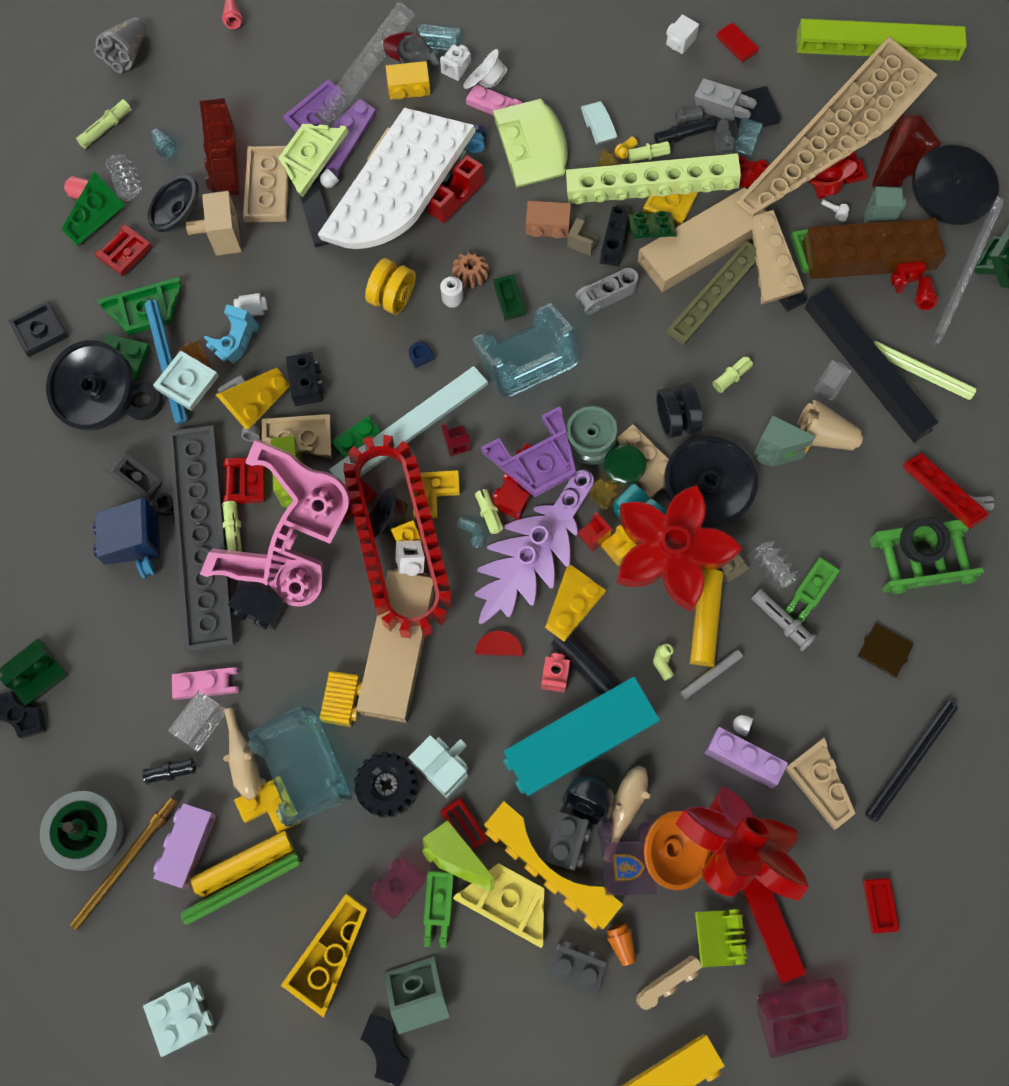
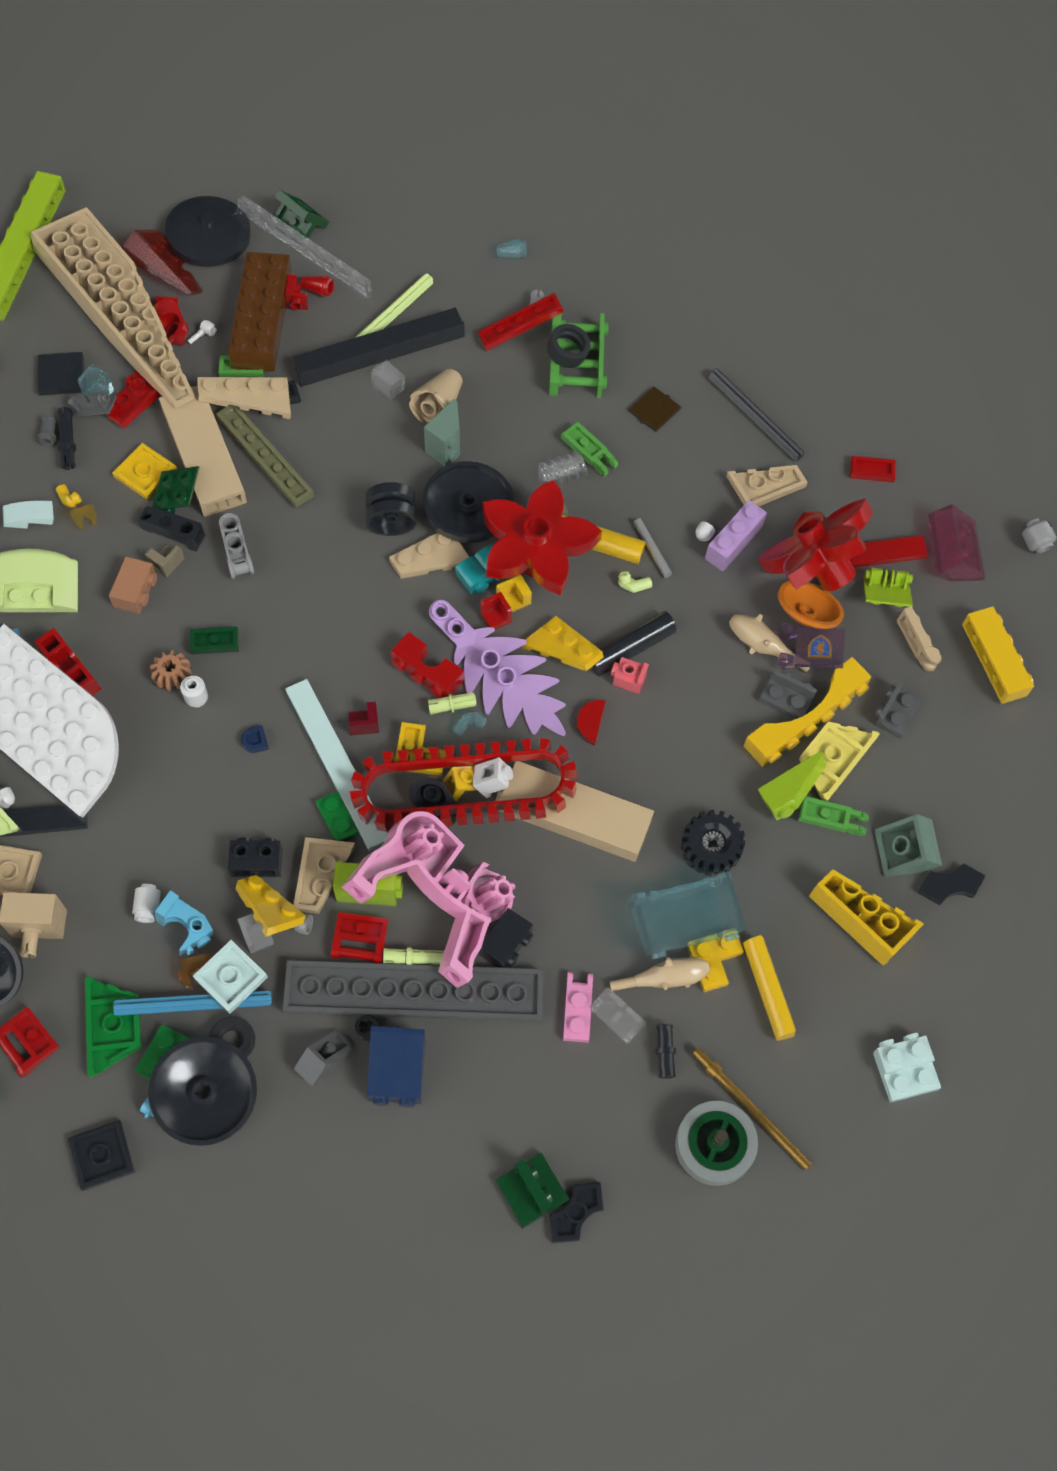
camera: 85 degrees left, 5 degrees down
(145, 567) = (437, 1053): dark azure bush -> none
(184, 846) = (745, 1042): lavender brick -> none
(240, 888) = (792, 996): bright green axle -> none
(340, 699) = (620, 871): yellow brick -> none
(390, 286) = (173, 747): yellow wheel -> none
(395, 902) = (807, 835): clear pink brick -> none
(441, 765) = (707, 786): light aqua brick -> none
(475, 844) = (754, 795): red tile -> none
(530, 354) = (283, 631): clear light blue windscreen -> none
(540, 465) = (421, 637): medium lavender wing -> none
(580, 737) = (697, 661): teal brick -> none
(590, 799) = (754, 665): black cylinder -> none
(591, 434) = (395, 592): sand green wheel -> none
(603, 493) = (458, 595): clear yellow tile -> none
(622, 943) = (882, 669): orange cone -> none
(624, 464) = (434, 570): dark green piece -> none
(649, 151) = (80, 475): yellowish green axle -> none
(660, 172) = (132, 405): yellowish green brick -> none
(723, 100) = (48, 392): light grey hinge -> none
(732, 374) = (358, 461): yellowish green axle -> none
(793, 630) = (622, 473): light grey pin -> none
(884, 205) = (221, 290): sand green brick -> none

